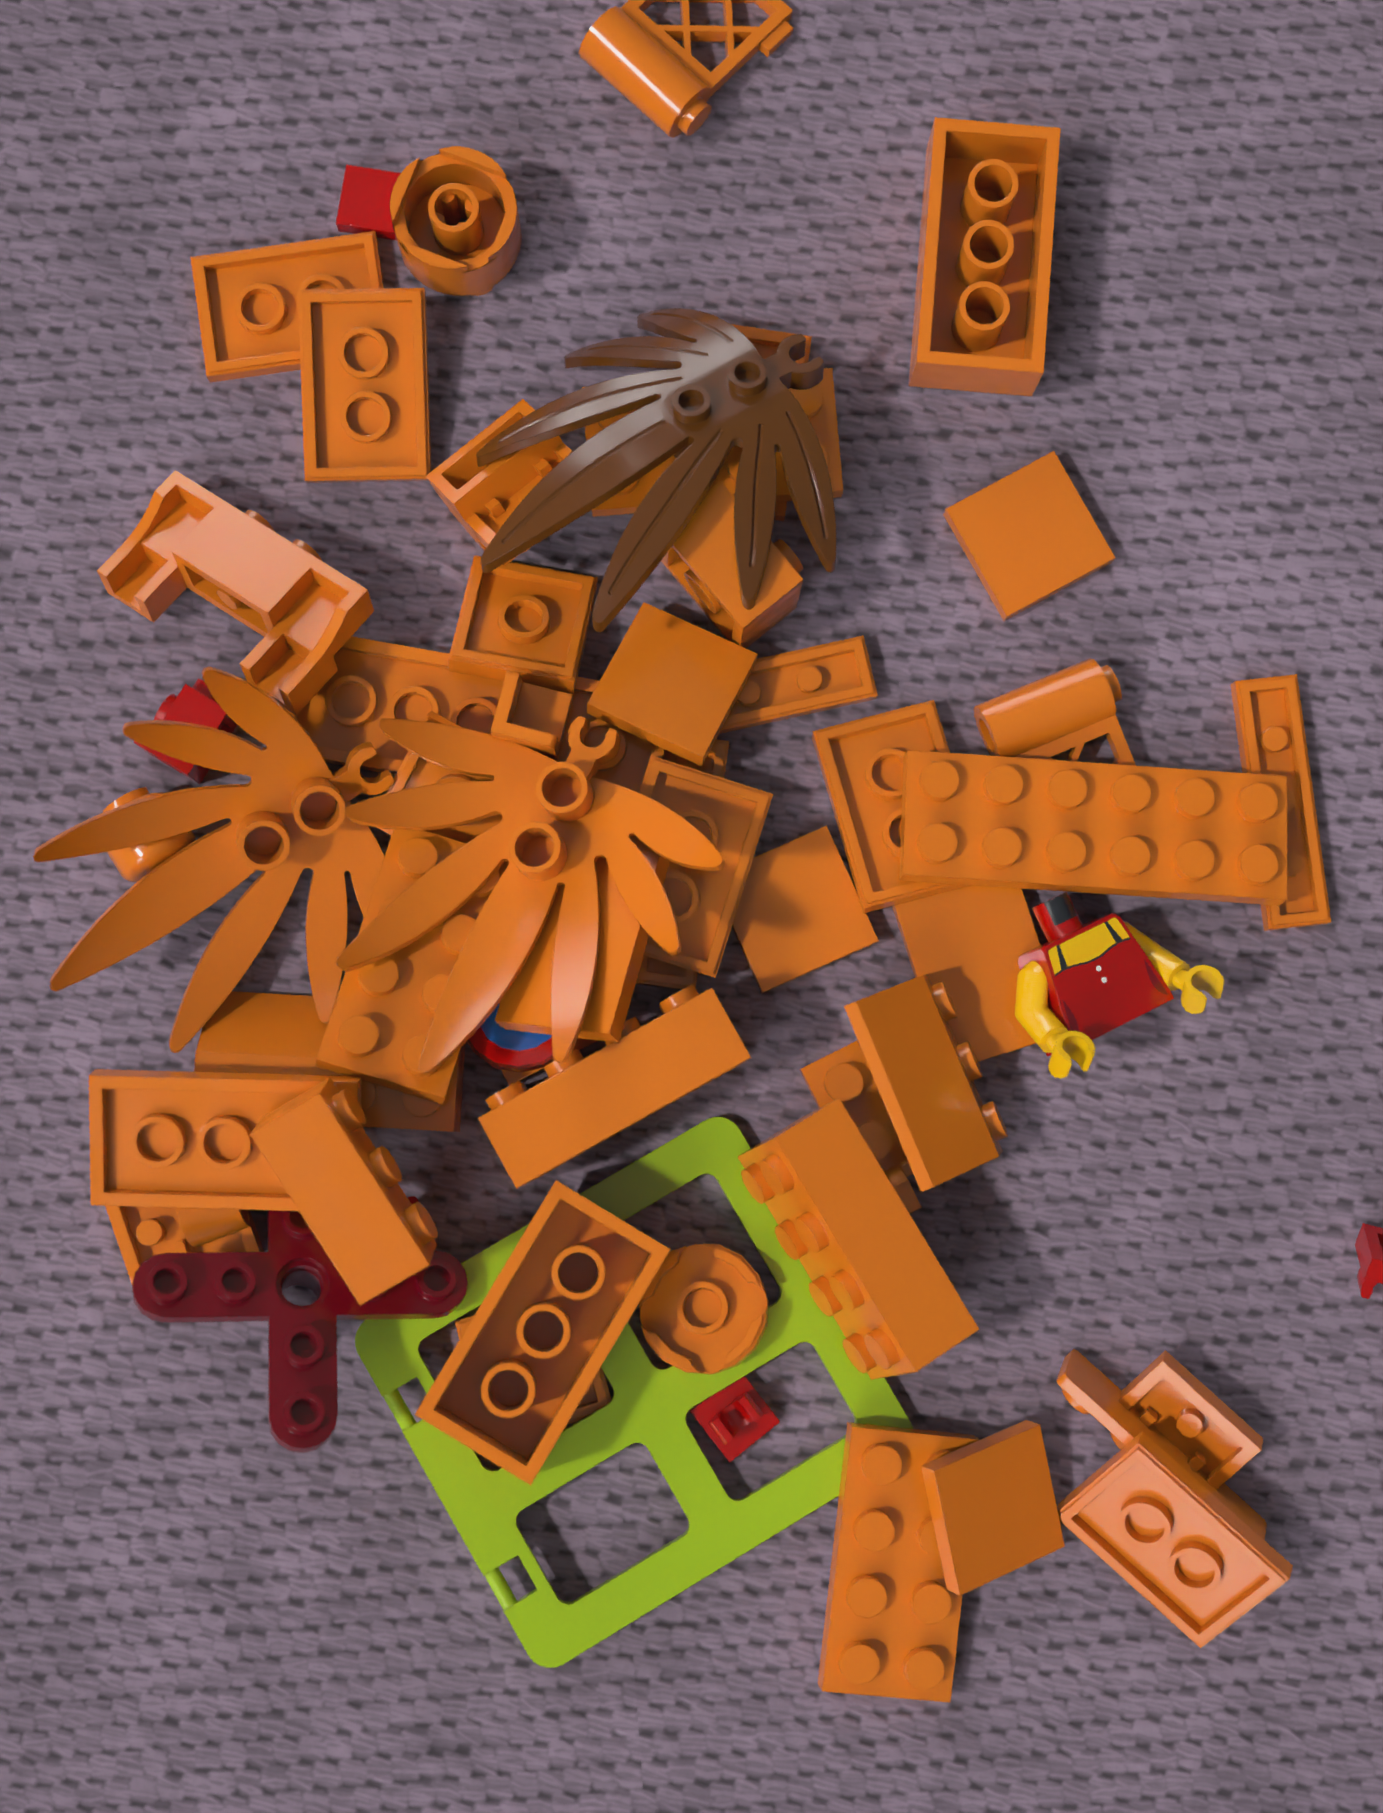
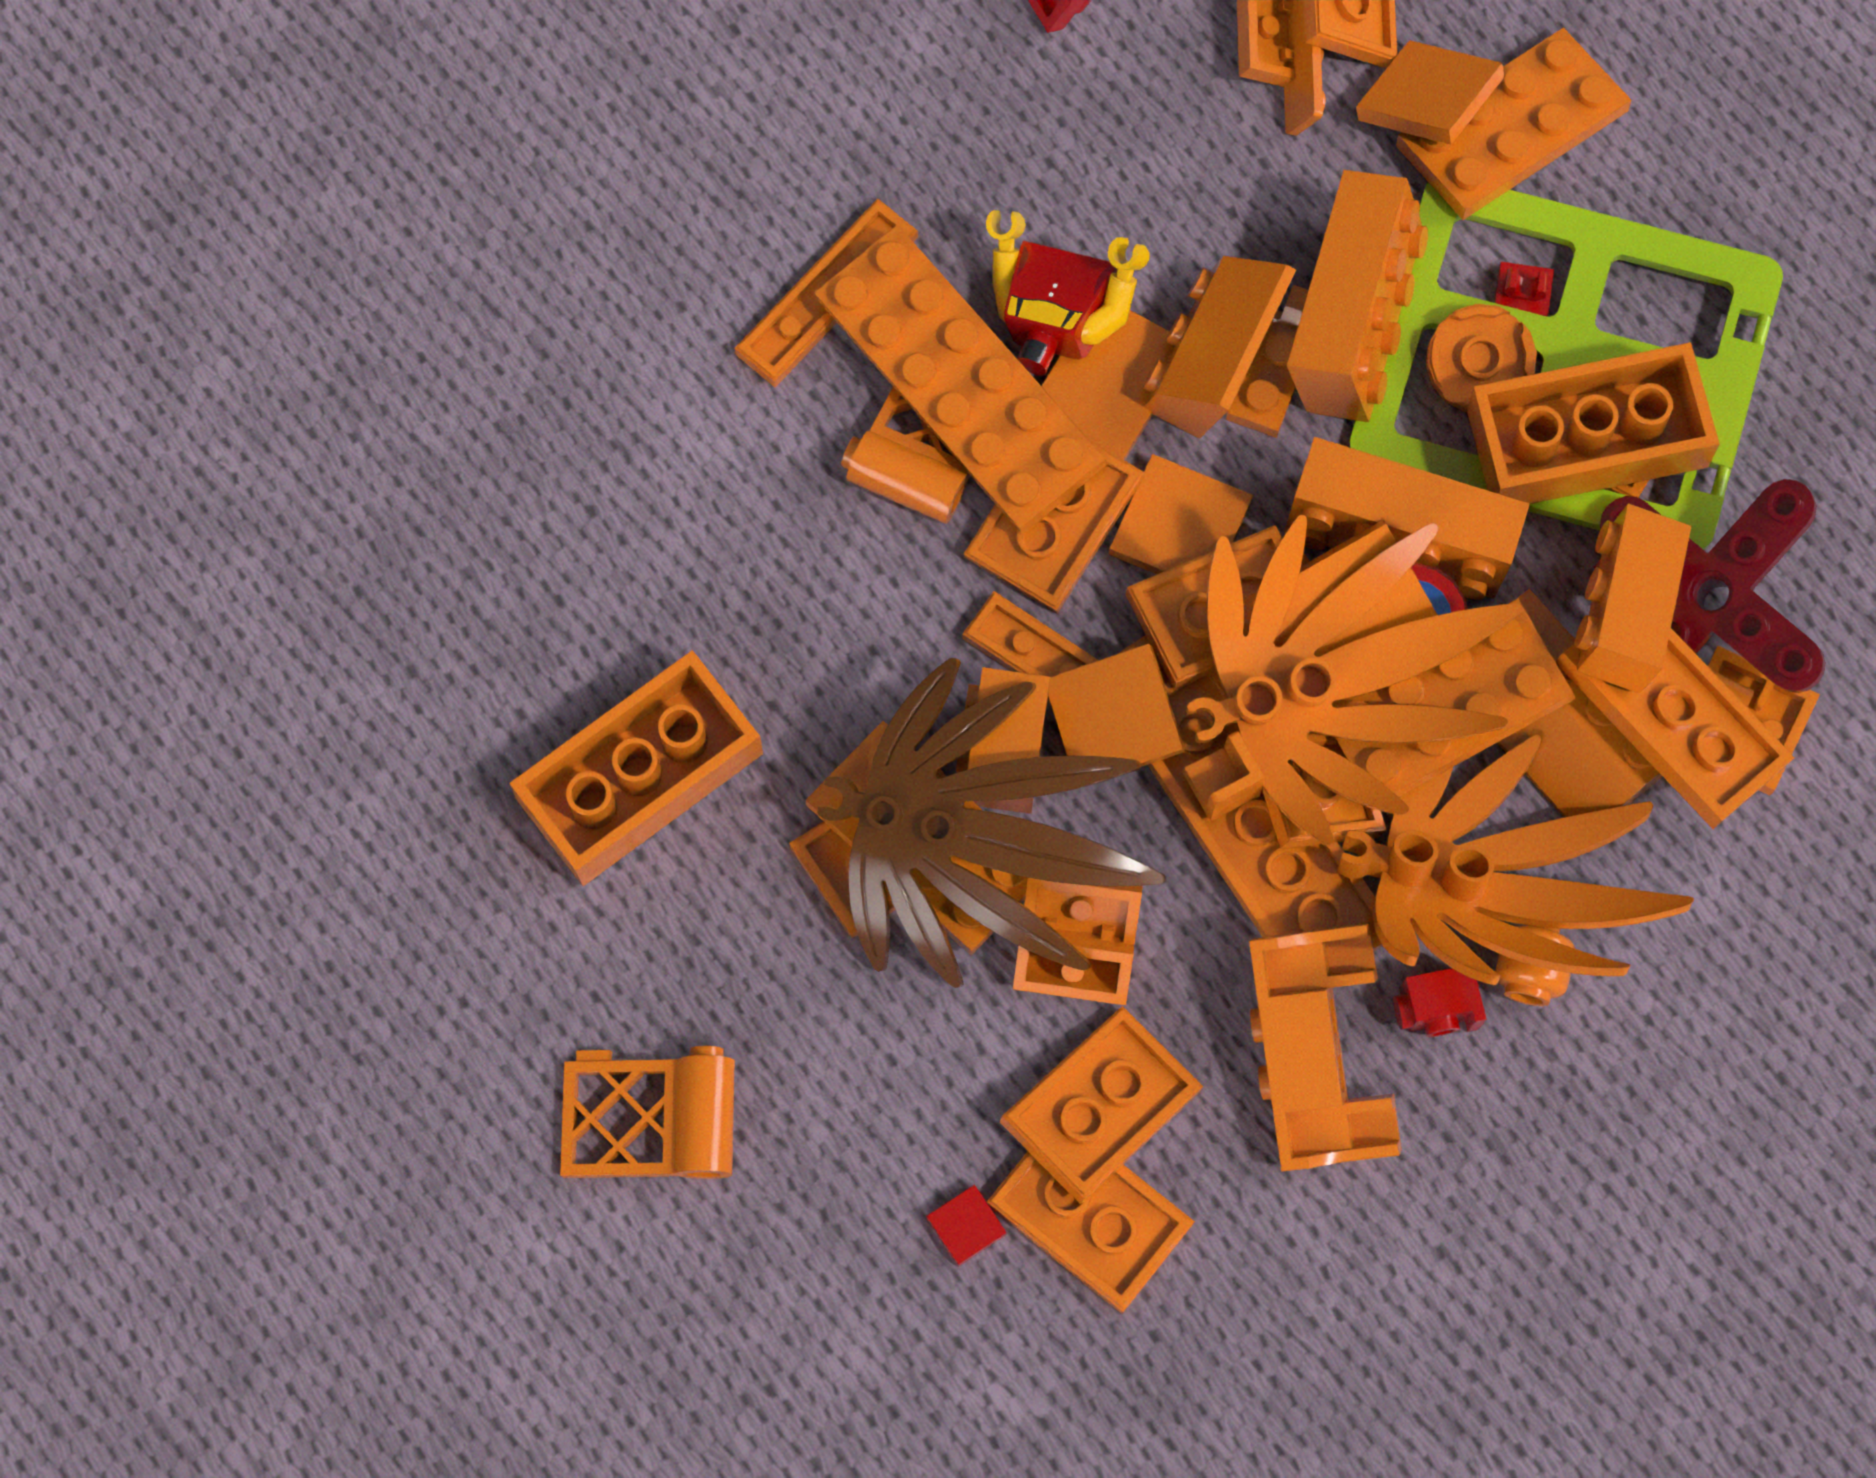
camera: 125 degrees left, 10 degrees down
(426, 216) = (949, 1110): orange brick -> none
(523, 623) = (1175, 837): orange tile -> none
(1028, 535) = (795, 590): orange tile -> none

